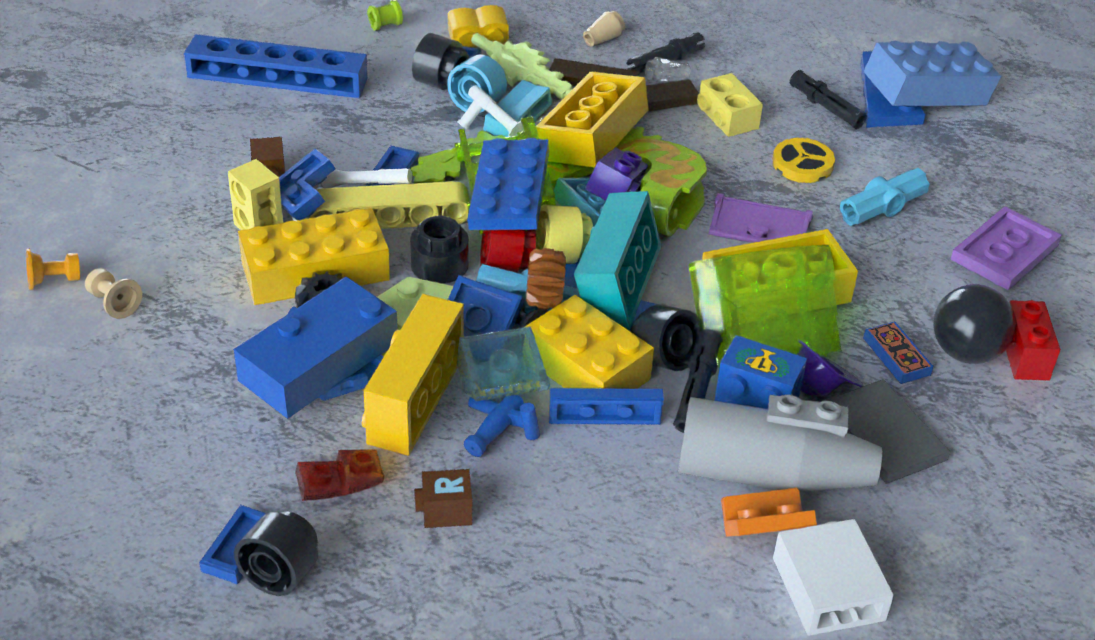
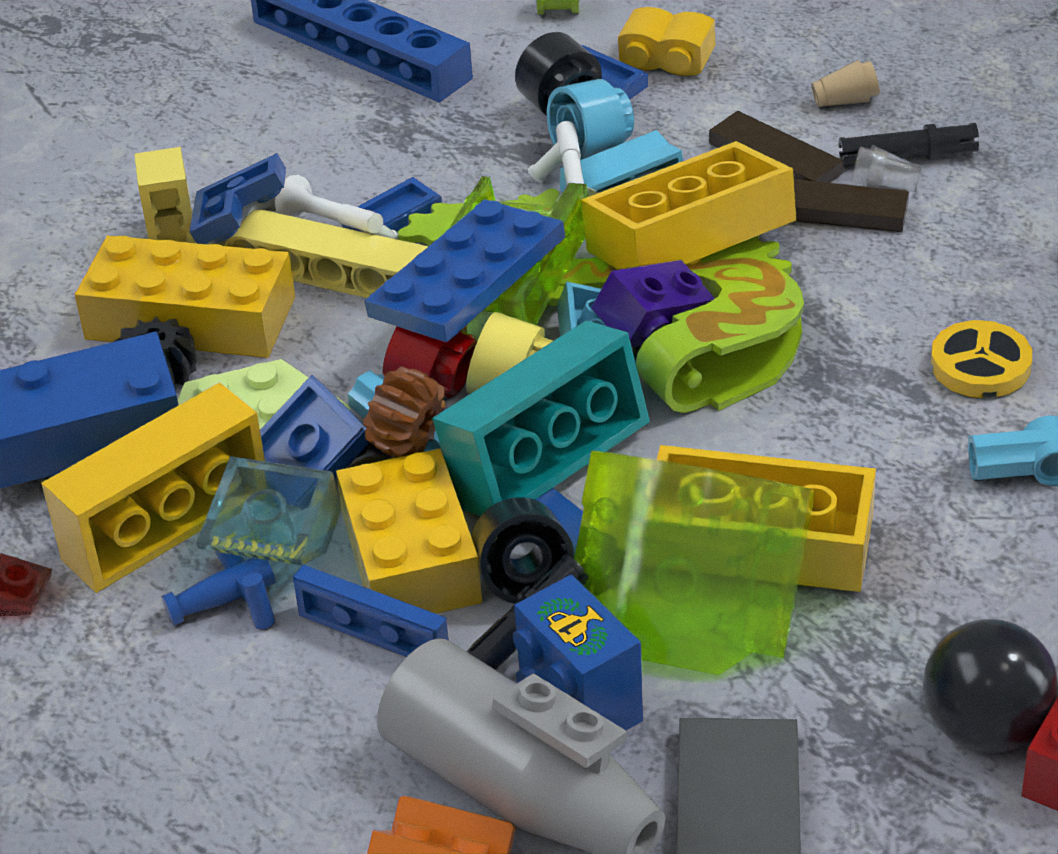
camera: 35 degrees right, 0 degrees up
(269, 152) = (236, 148): reddish brown brick -> none
(439, 250) = (340, 336): black piece -> none
(445, 498) = (73, 662): reddish brown brick -> none
(523, 63) = (678, 106): yellowish green piece -> none
(730, 104) = (931, 244): light yellow brick -> none
(739, 218) = (814, 420): medium lavender door -> none
(822, 374) = (704, 673): dark purple piece -> none
(898, 352) = (863, 690): tile -> none

